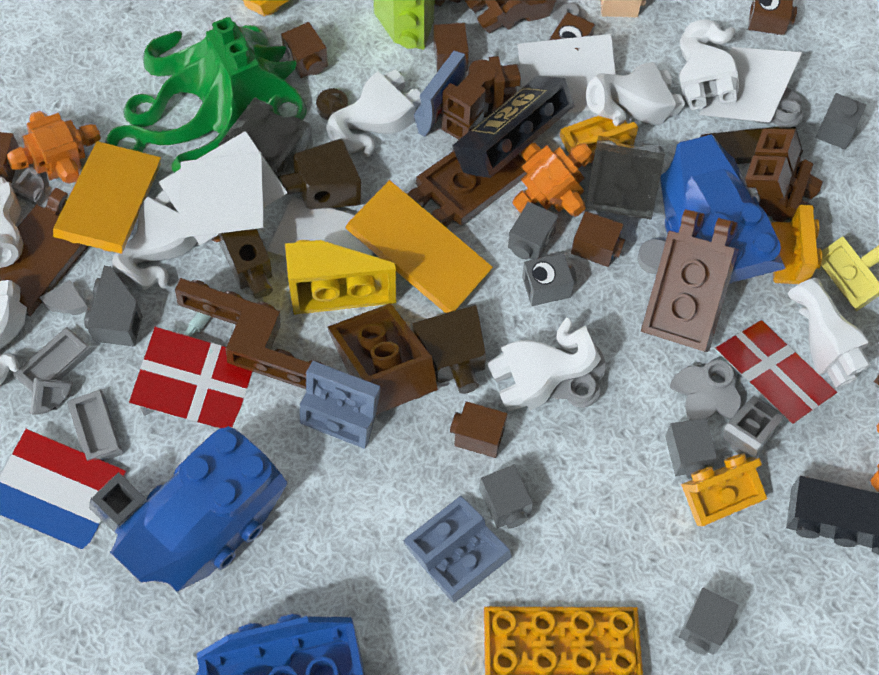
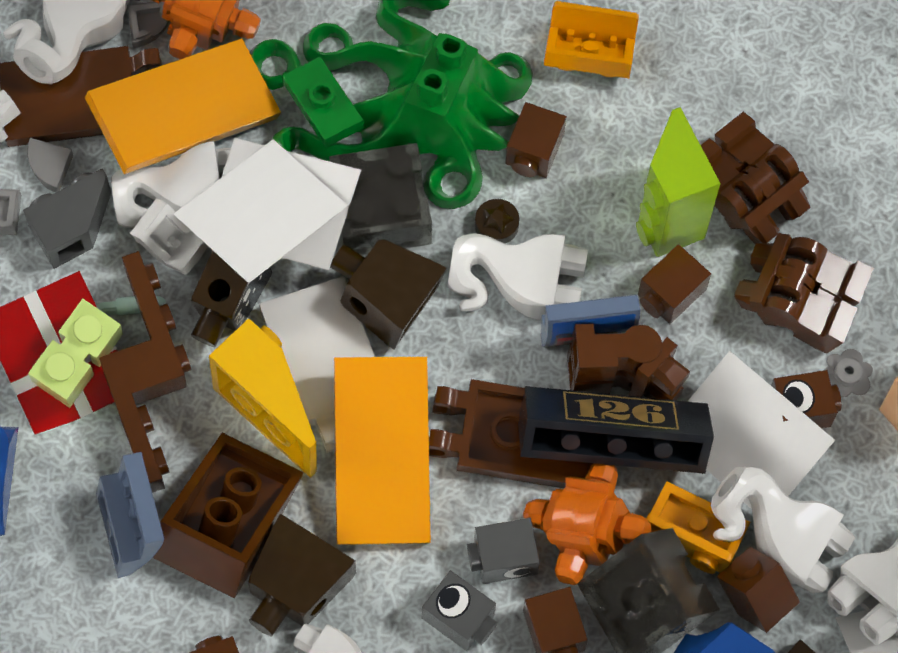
camera: 50 degrees right, 5 degrees up
(178, 263) = (168, 238): none -> white bracket
(180, 126) = (323, 102): none -> green plate
(212, 372) = (63, 367): none -> yellowish green piece
(660, 126) = (758, 589): none -> reddish brown brick

